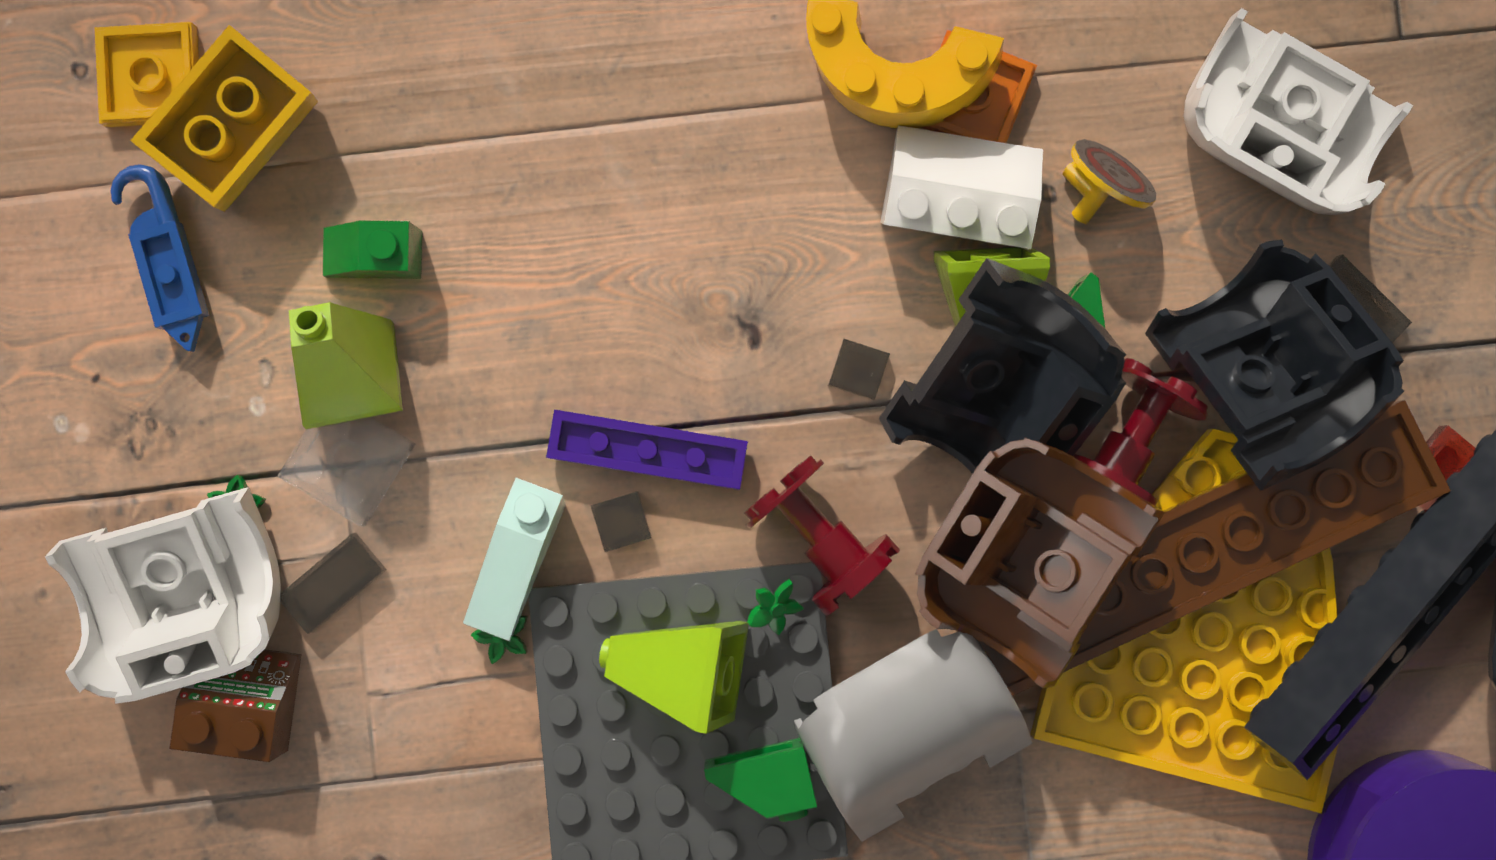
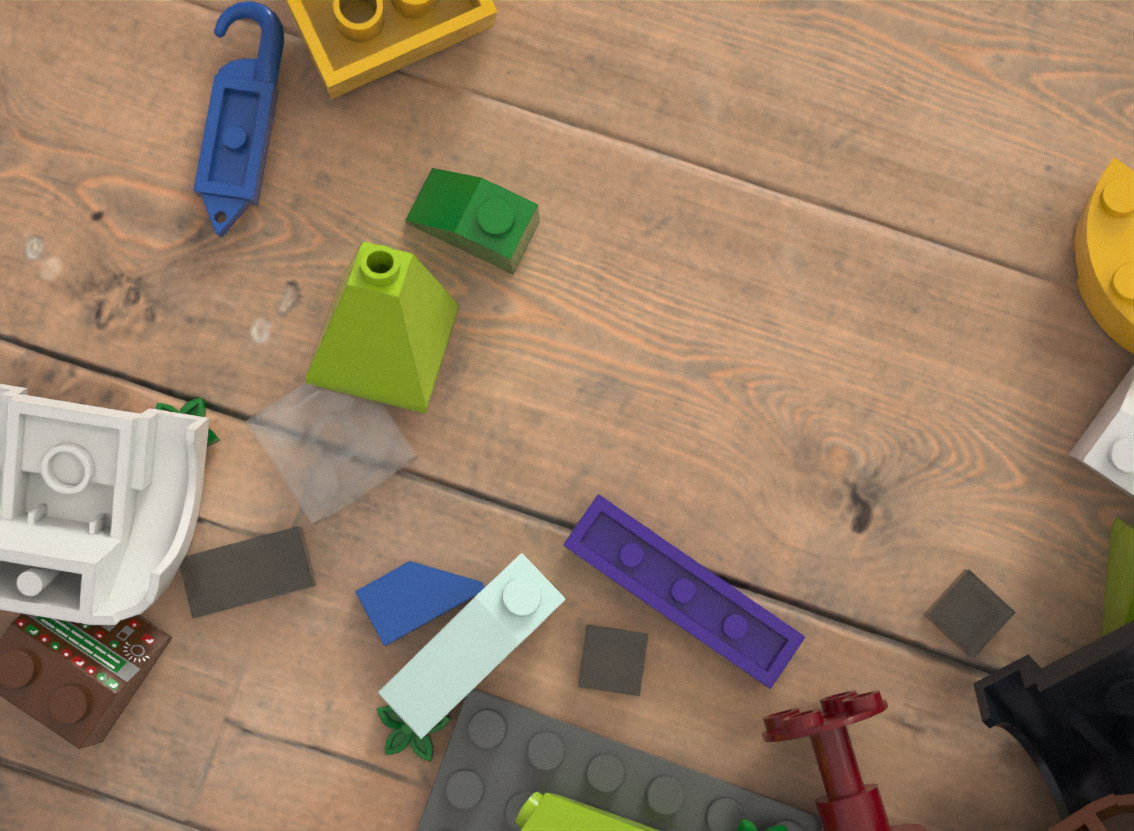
camera: 30 degrees right, 5 degrees down
(457, 546) = (413, 598): none -> blue tile

